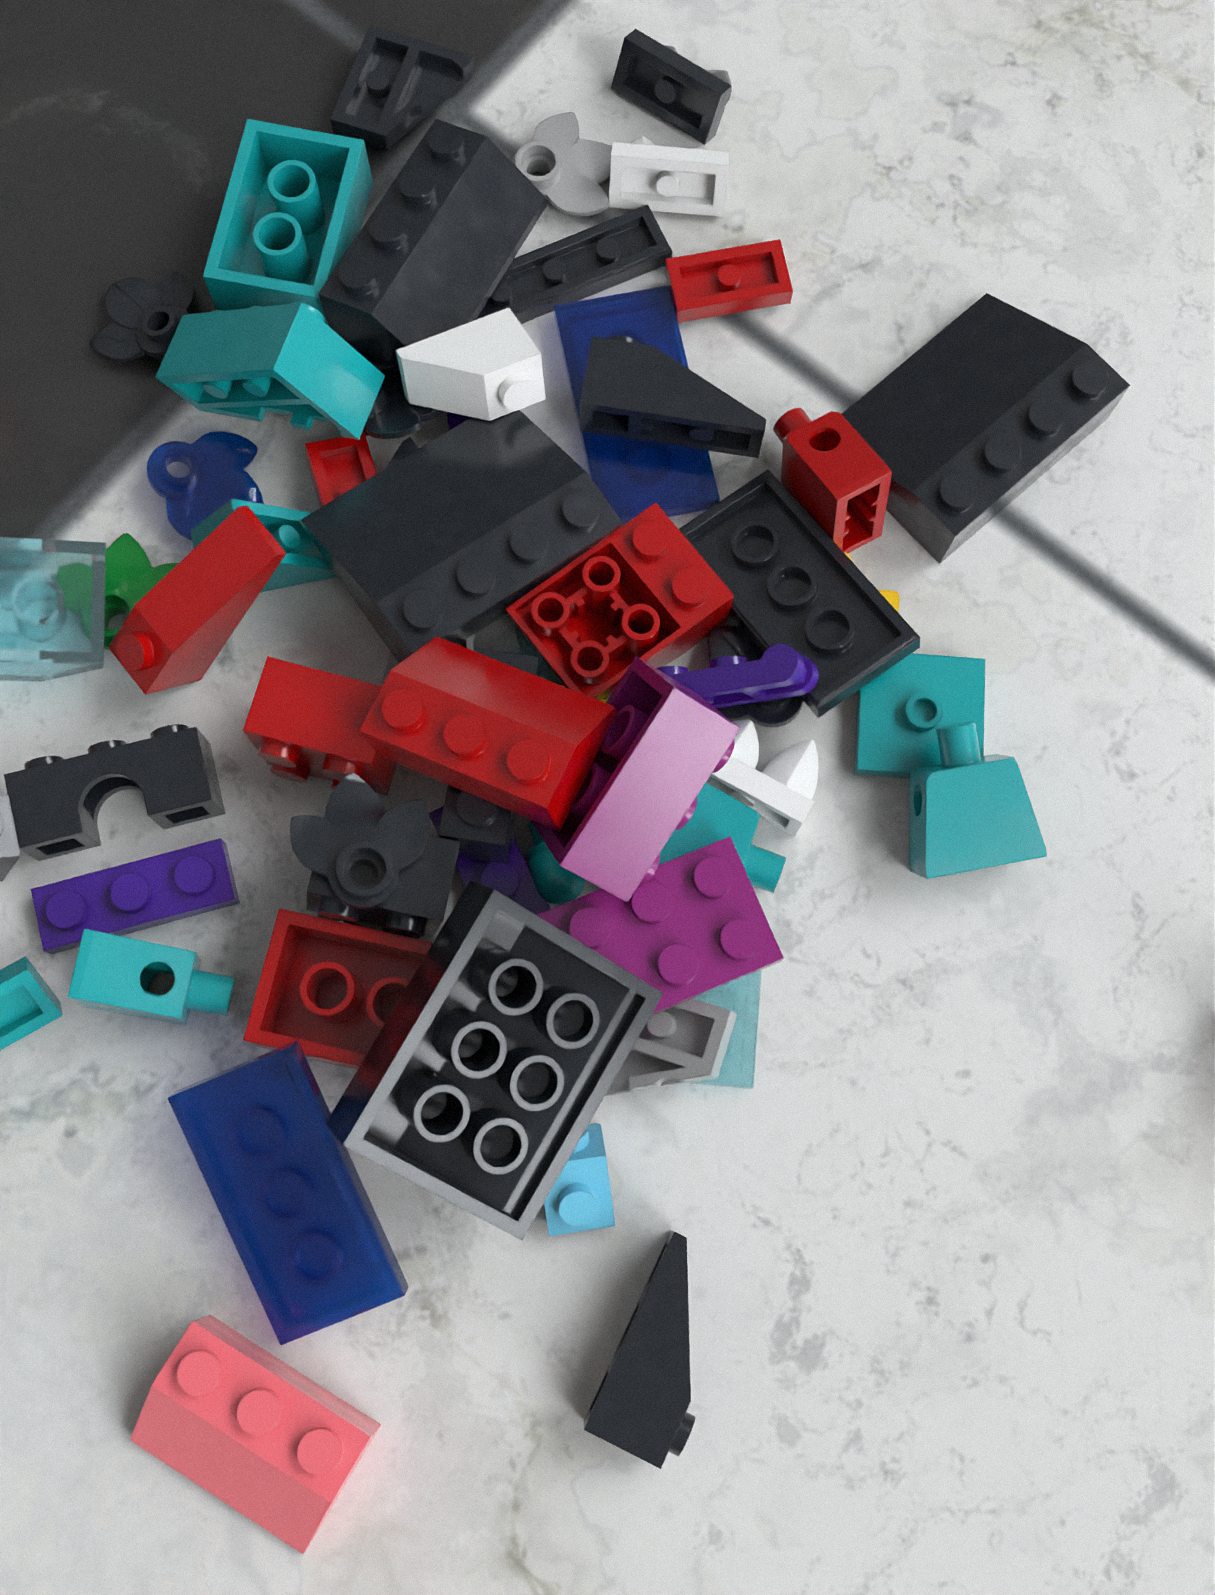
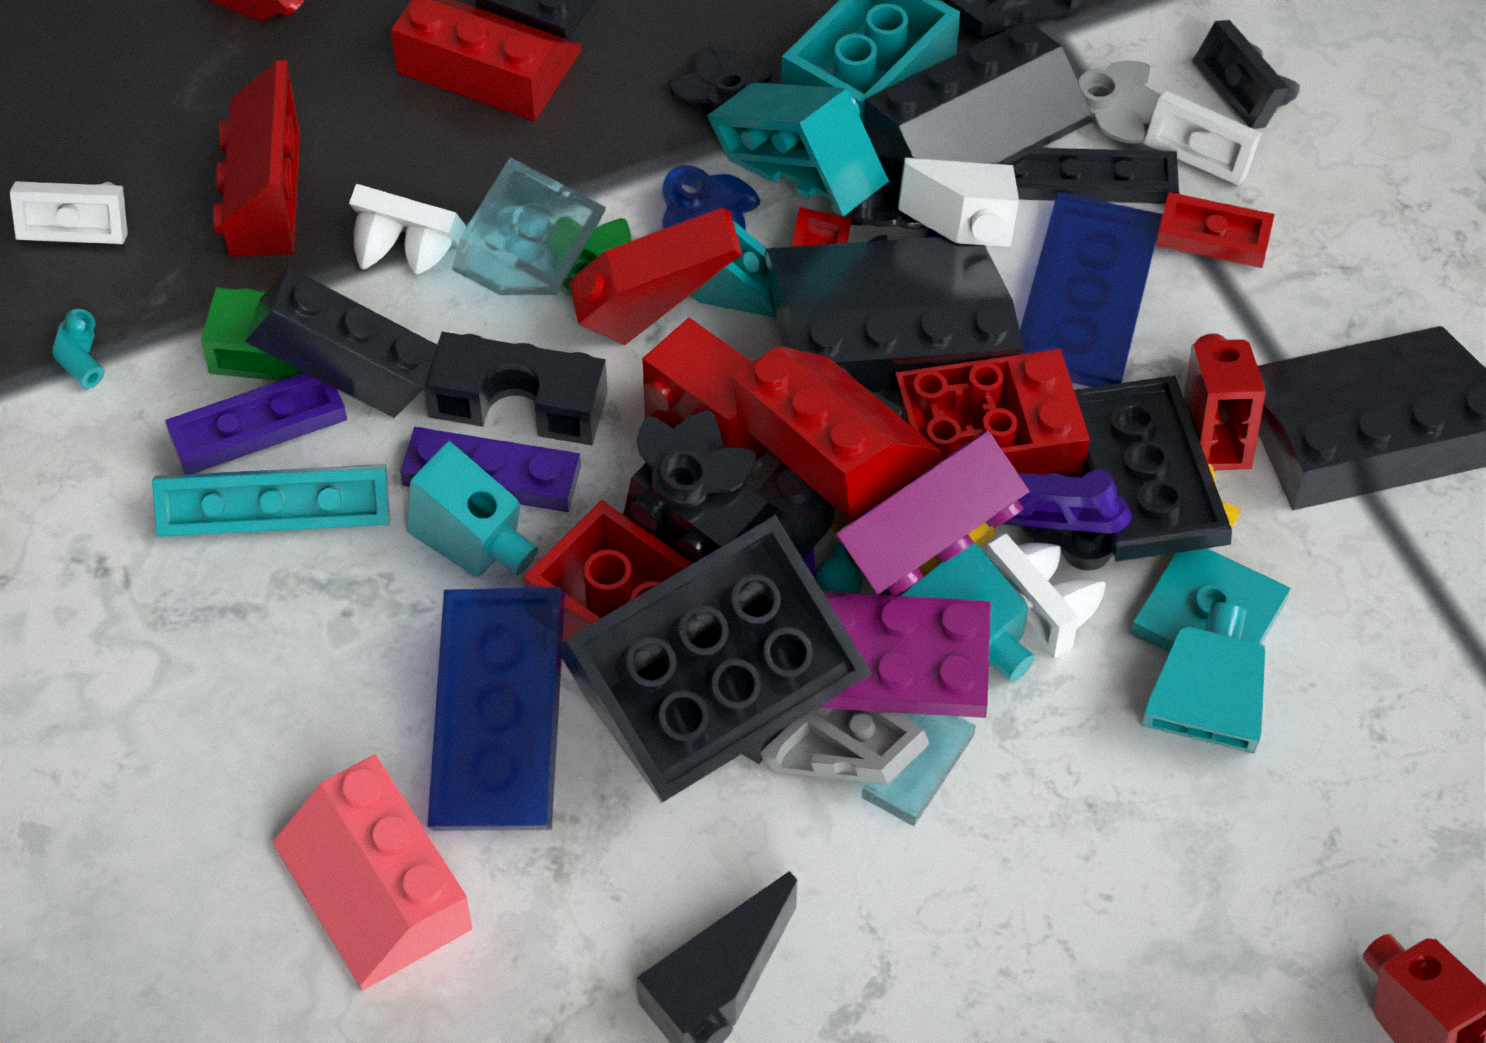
camera: 30 degrees right, 20 degrees down
(582, 1192) = (728, 815): medium azure bracket -> none
(652, 398) = (1104, 283): black slope -> none

